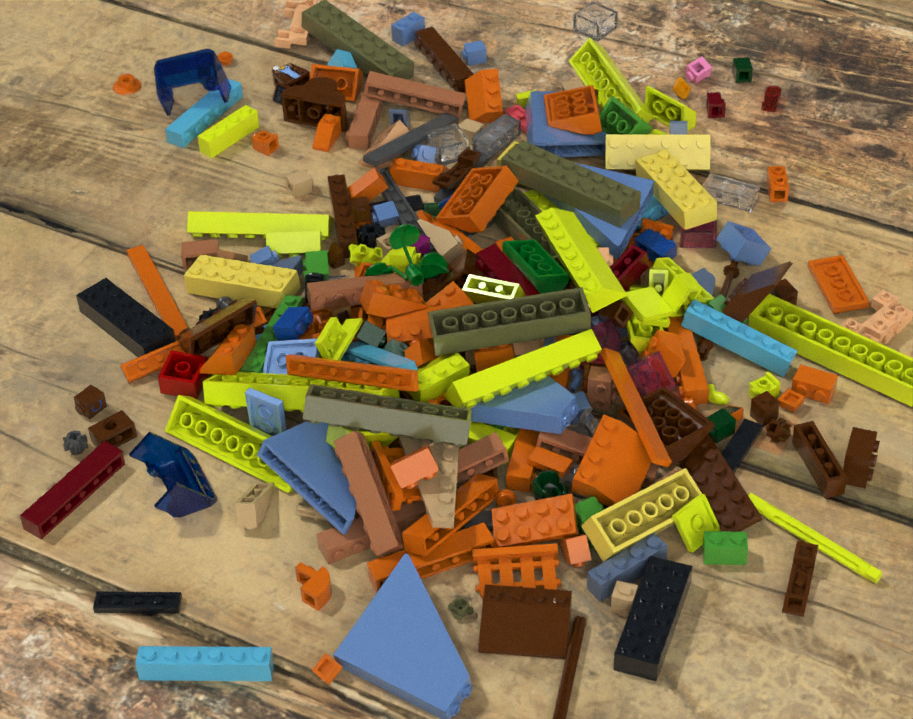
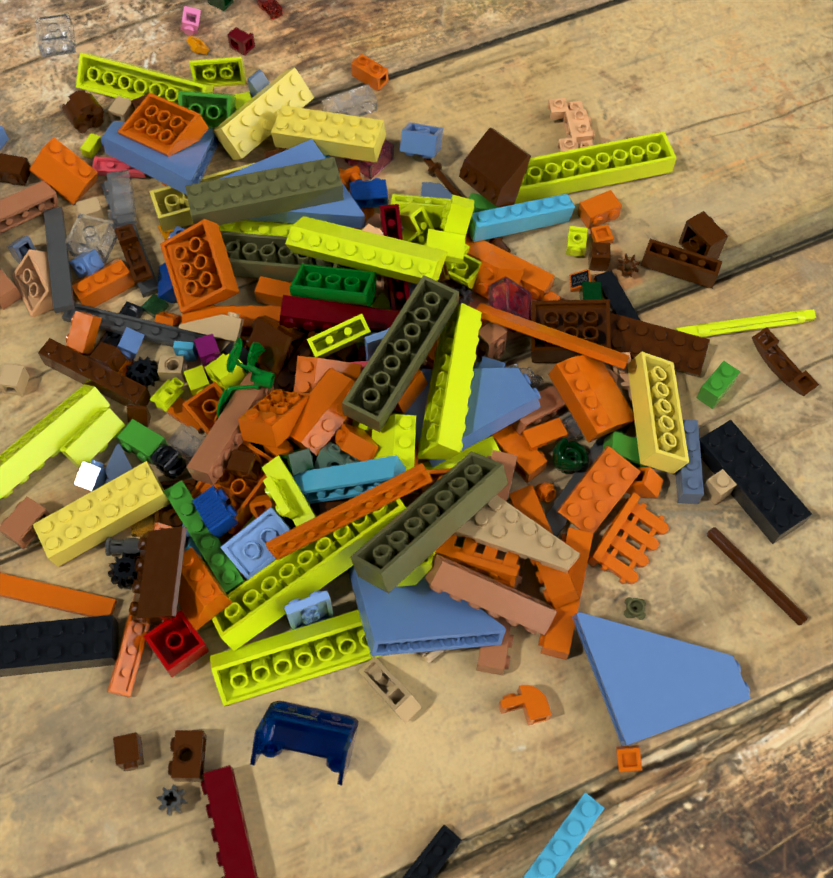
camera: 55 degrees left, 20 degrees up
(231, 255) = (57, 498): medium nougat plate -> none
(415, 467) = (497, 539): orange slope -> none
(525, 621) = (688, 572): reddish brown slope -> none
(546, 73) = (83, 111): none -> reddish brown brick
(694, 520) = (684, 384): neon yellow tile -> none
(716, 397) = (560, 275): neon yellow arm -> none
(838, 284) = (509, 119): orange plate -> none

